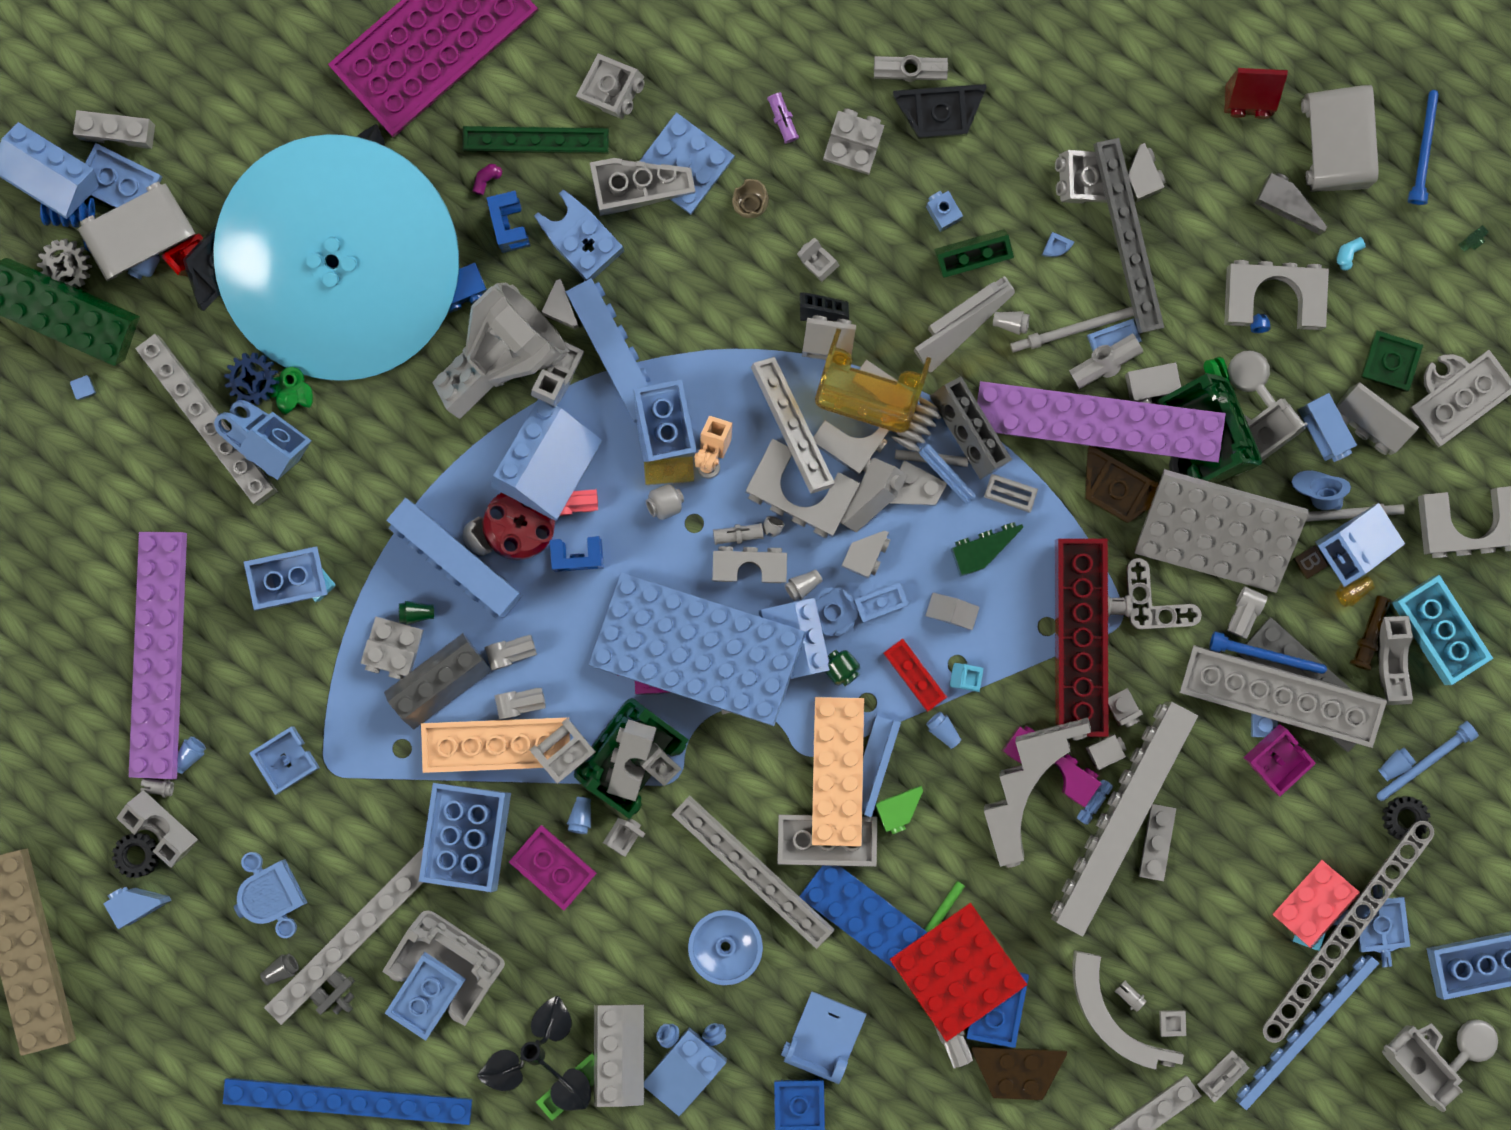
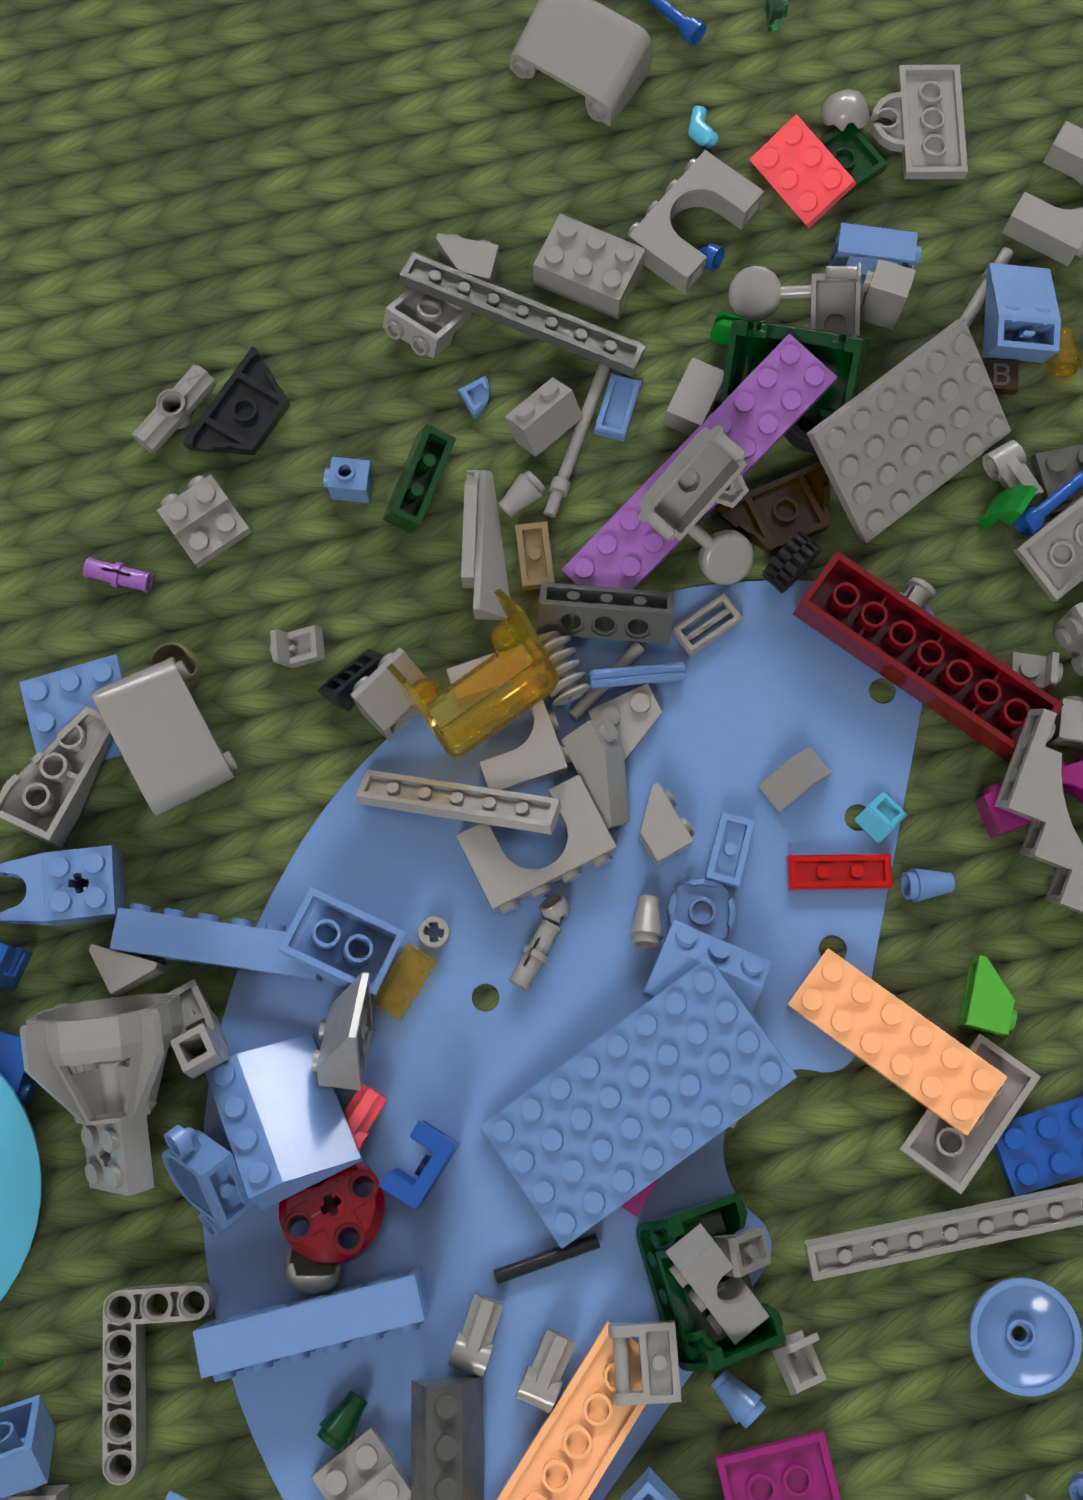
camera: 50 degrees left, 10 degrees down
(362, 477) = (133, 1365): none -> light grey beam
(484, 443) = (206, 1177): none -> medium blue piece
(577, 661) = (546, 1259): none -> black bar
(613, 462) = (346, 1038): none -> light grey slope
(664, 502) = (436, 1012): light grey head -> none
(706, 226) = (163, 735): none -> light grey windscreen
(713, 443) = (411, 906): light nougat brick -> none
(771, 563) = (597, 942): light grey arch -> none
(842, 667) = (776, 945): dark green head -> none
(876, 760) = (908, 980): medium blue fence -> none
(978, 358) = (534, 554): none -> dark tan plate
(979, 553) = (752, 699): dark green slope -> none
(1070, 299) = (544, 416): none -> light grey brick
(1074, 423) = (686, 493): none -> light grey piece
(1085, 516) = (791, 561): none -> black tyre
(1106, 361) = (637, 427): light grey piece -> none
(1152, 612) = (942, 571): light grey beam -> none
(1194, 252) = (588, 266): none -> light grey brick
(1217, 622) = (1008, 505): none -> green slope
(1254, 92) = (468, 92): dark red slope -> none
(1286, 201) = (608, 146): flat silver slope -> none
(1307, 451) = (885, 293): none -> light grey brick
(1324, 490) = (933, 310): medium blue piece -> none
(1362, 340) = (802, 171): none -> coral plate
(1375, 419) = (900, 202): light grey slope -> none
(1427, 337) = (844, 108): none -> light grey hair

